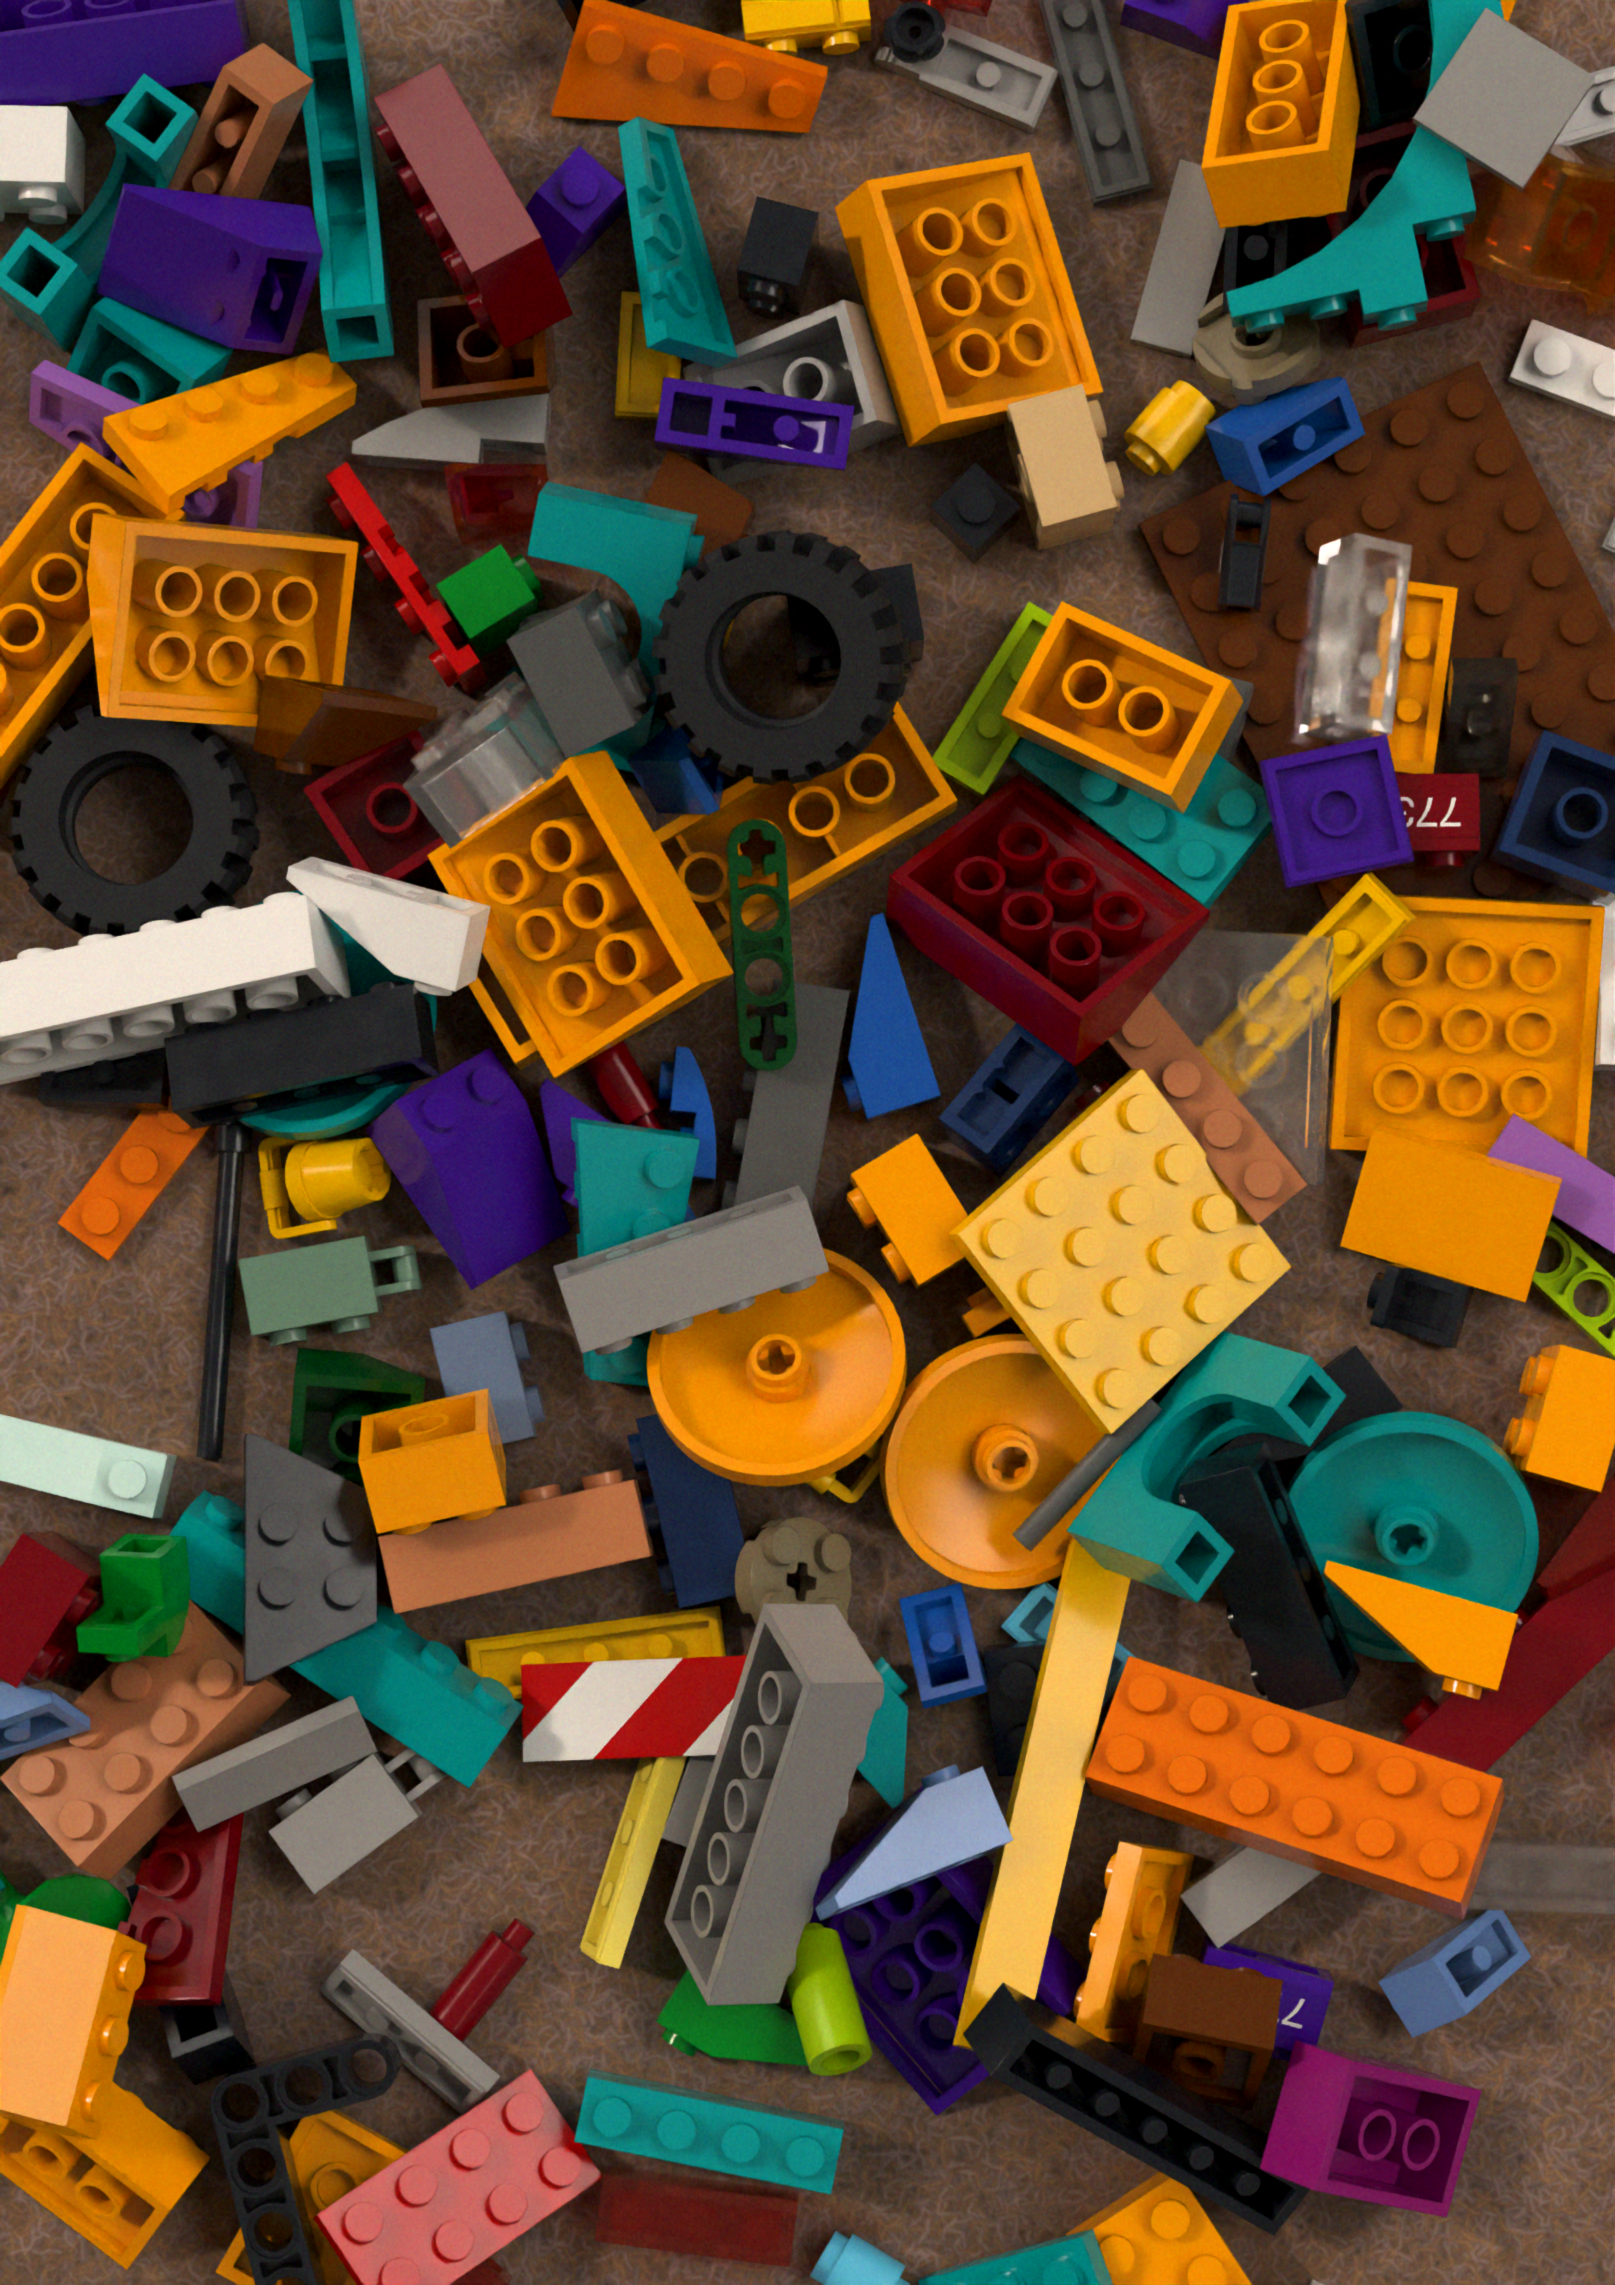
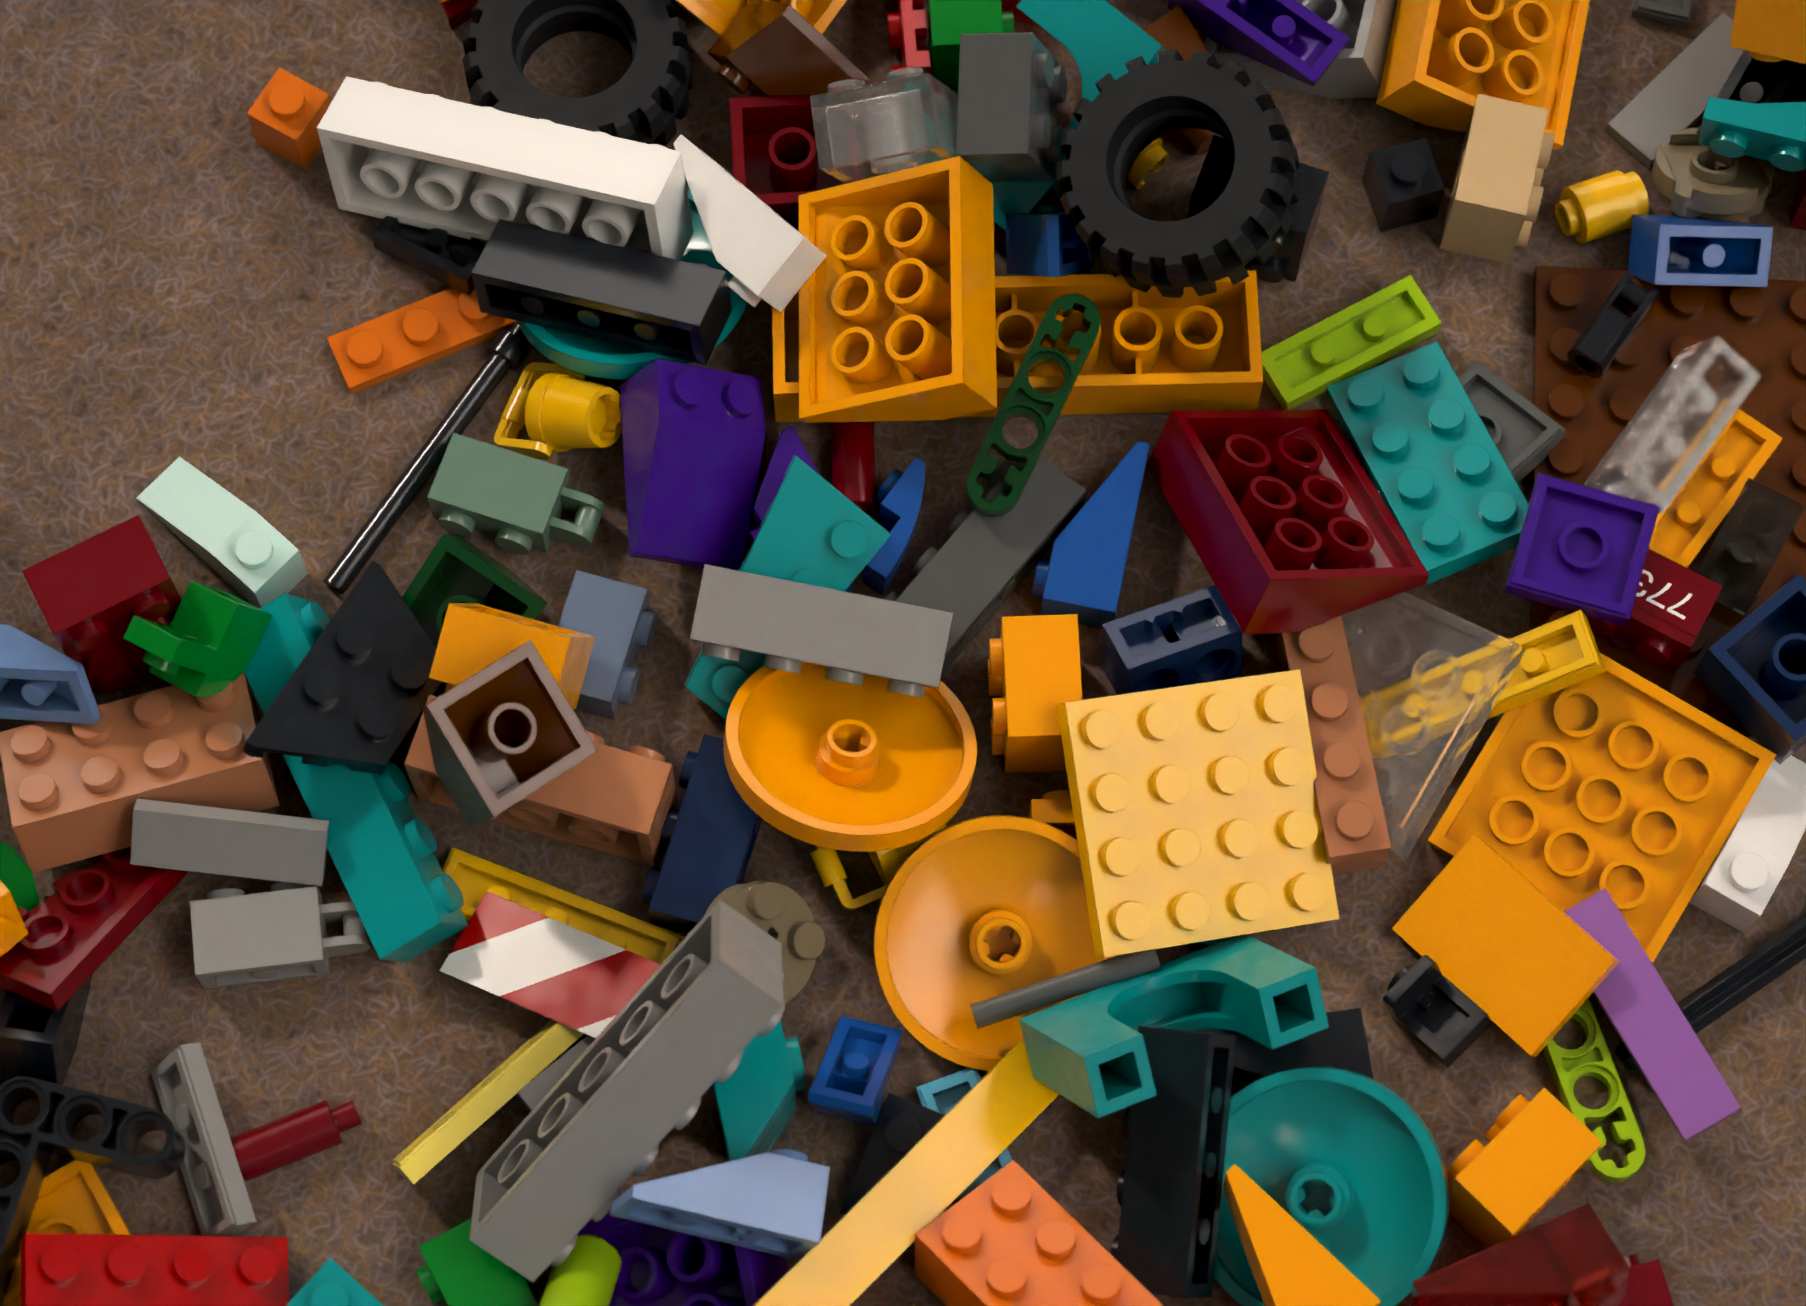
camera: 25 degrees right, 15 degrees down
(483, 1554) = (503, 734): none -> reddish brown slope
(1122, 707) = (1444, 374): light orange brick -> none

